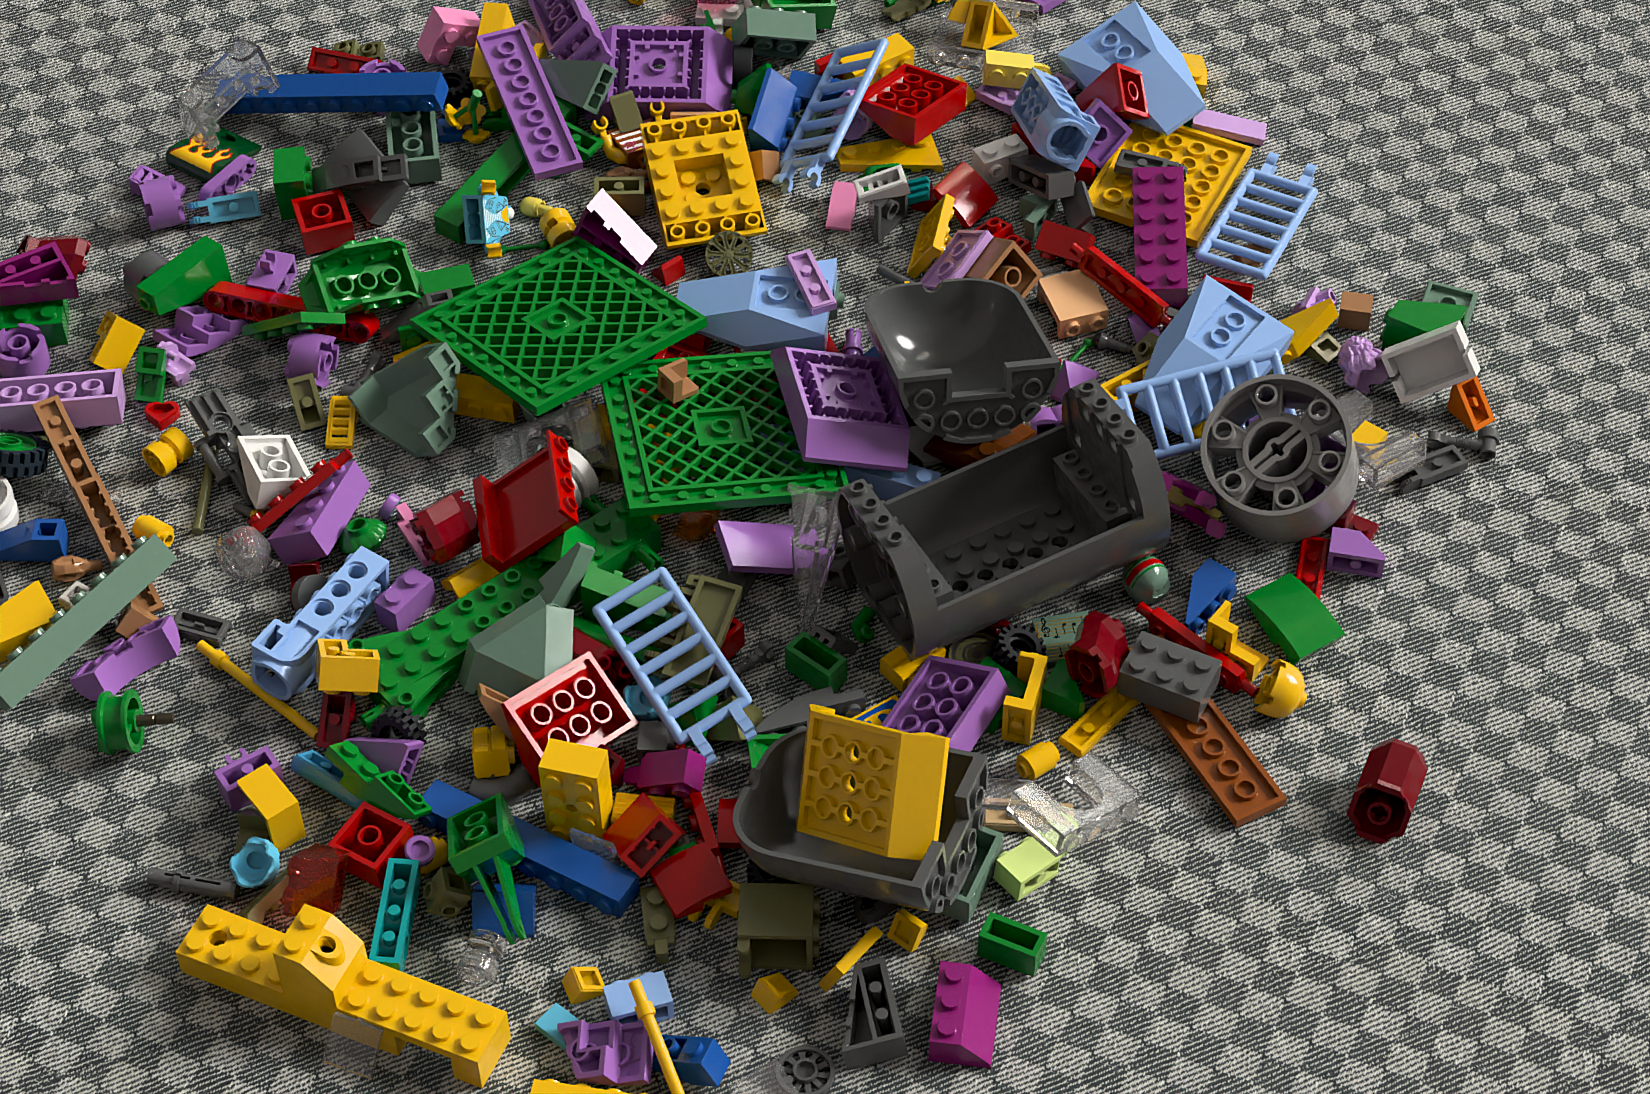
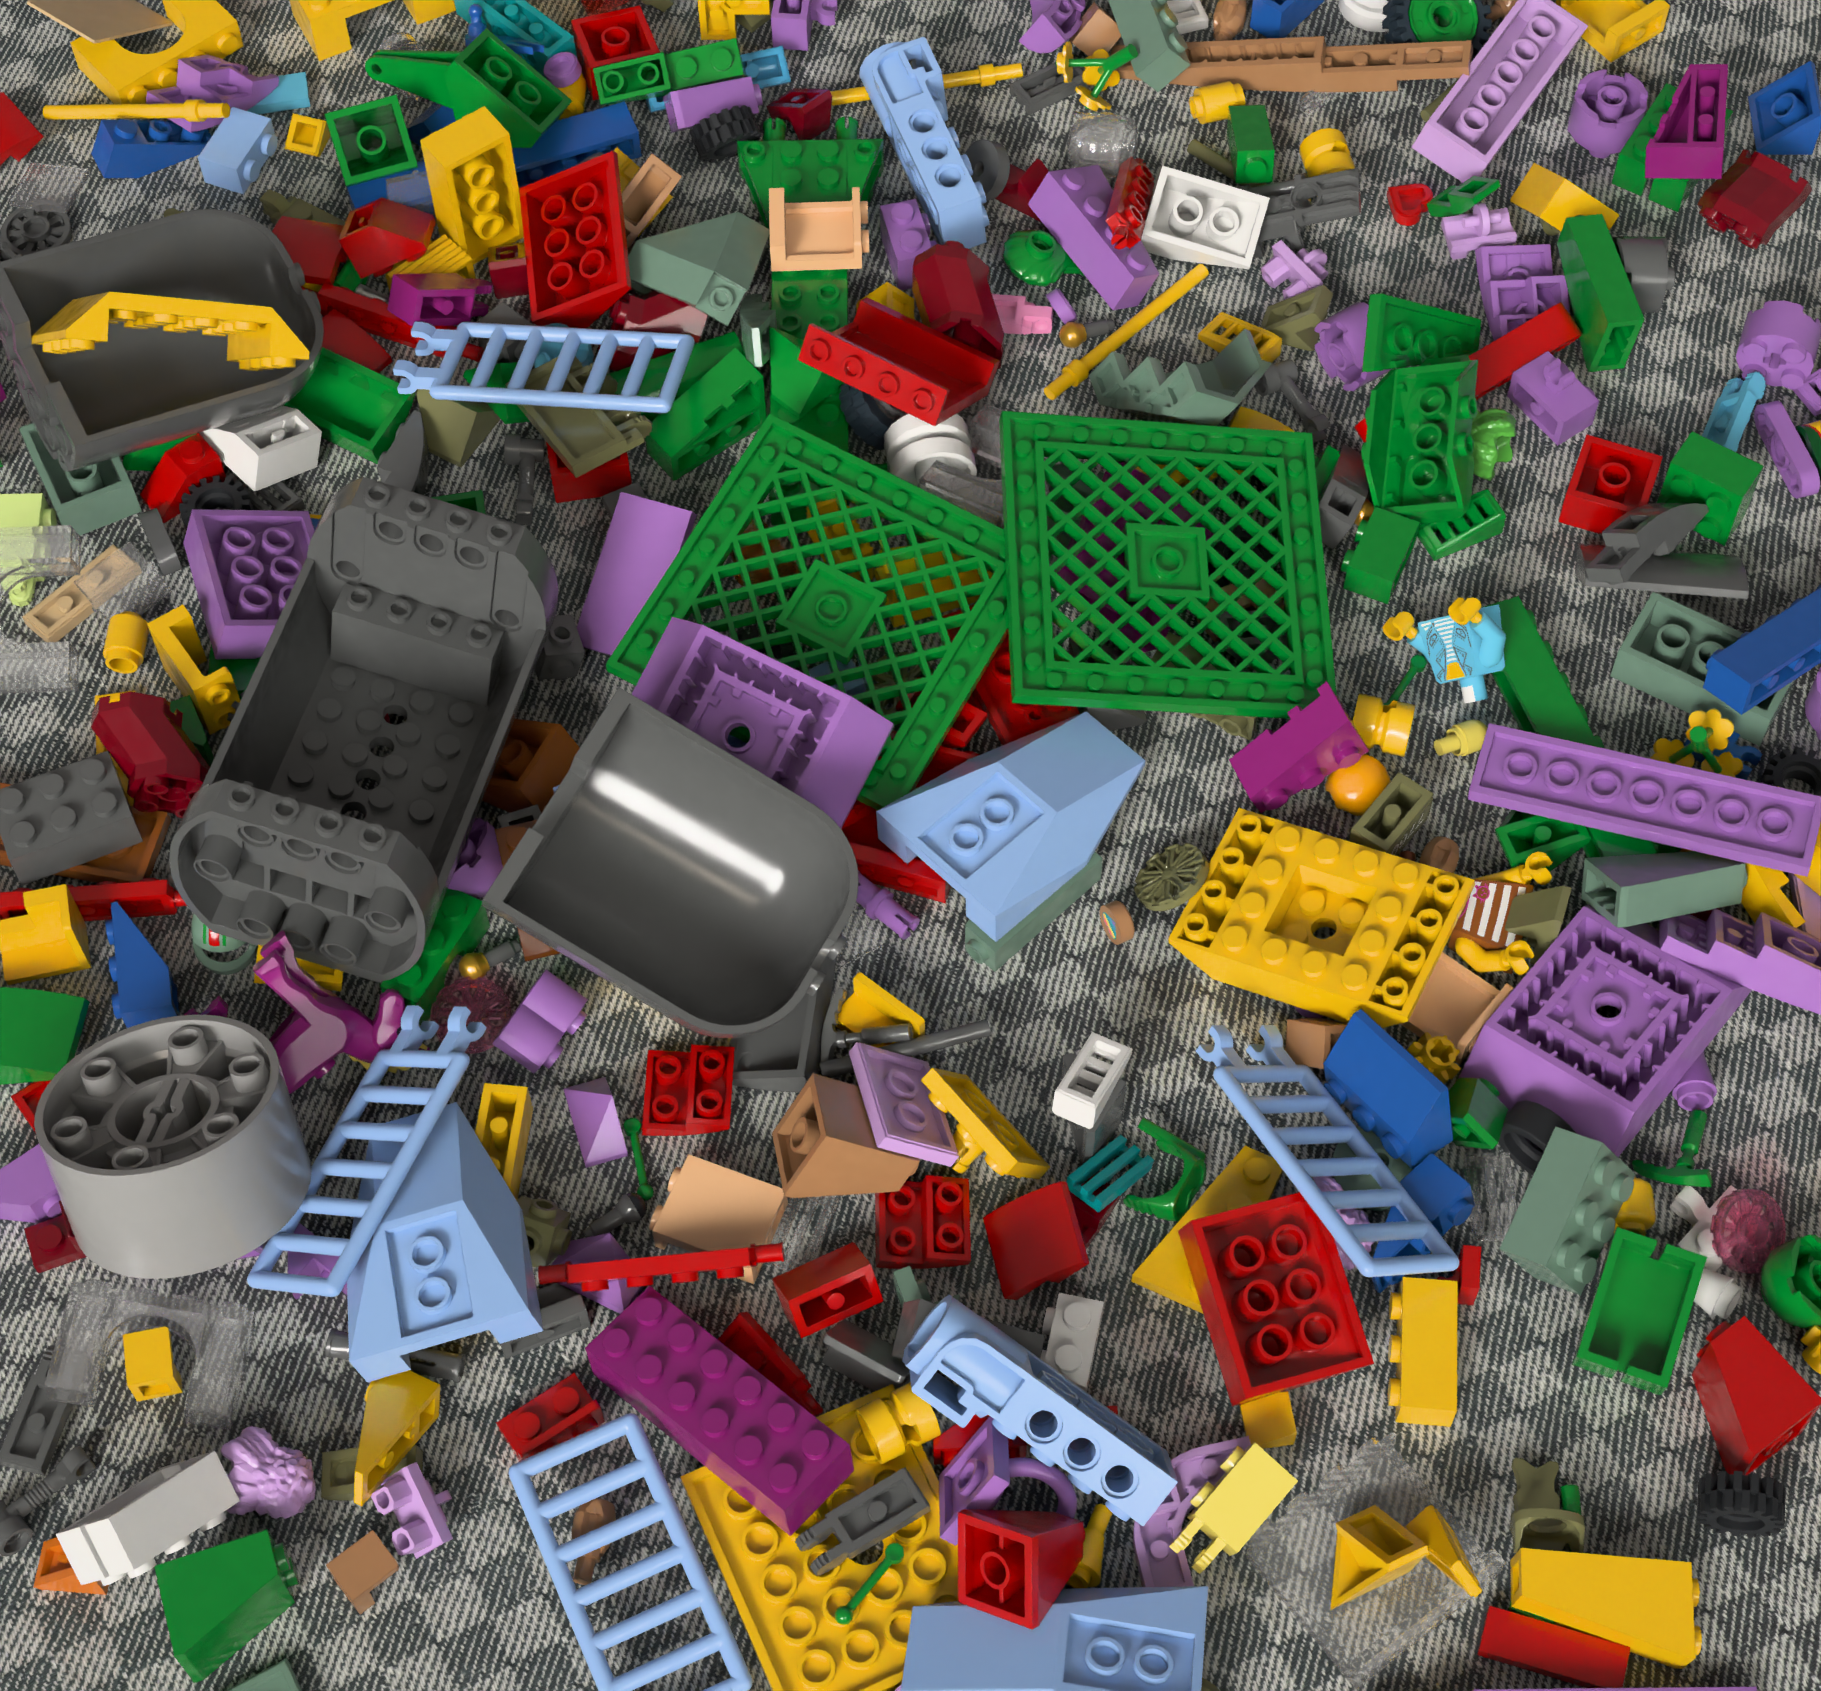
camera: 130 degrees right, 10 degrees up
(185, 487) = (1250, 144): none -> green brick
(186, 605) = (1099, 71): none -> plant
(267, 420) = (1301, 269): none -> lavender hips
(345, 668) = (831, 91): yellow brick -> none
(404, 492) = (1074, 334): none -> piece
(427, 900) = (518, 45): none -> blue piece
(429, 478) = (1078, 370): none -> yellow bar
(451, 611) = (817, 233): none -> light nougat panel
(576, 904) = (371, 140): none -> green slope
(670, 271) = (1214, 809): red slope -> none
(674, 381) = (933, 596): medium nougat panel -> none
(772, 260) = (1117, 922): none -> medium nougat tile
(811, 282) = (974, 850): lavender tile -> none
(812, 546) = (600, 607): clear wedge -> none
(842, 206) = (1161, 1090): bright pink slope -> none
(1100, 177) = (896, 1423): none -> yellow wheel
(1120, 243) = (762, 1353): none -> red hinge
(1191, 156) = (893, 1555): none -> green hinge

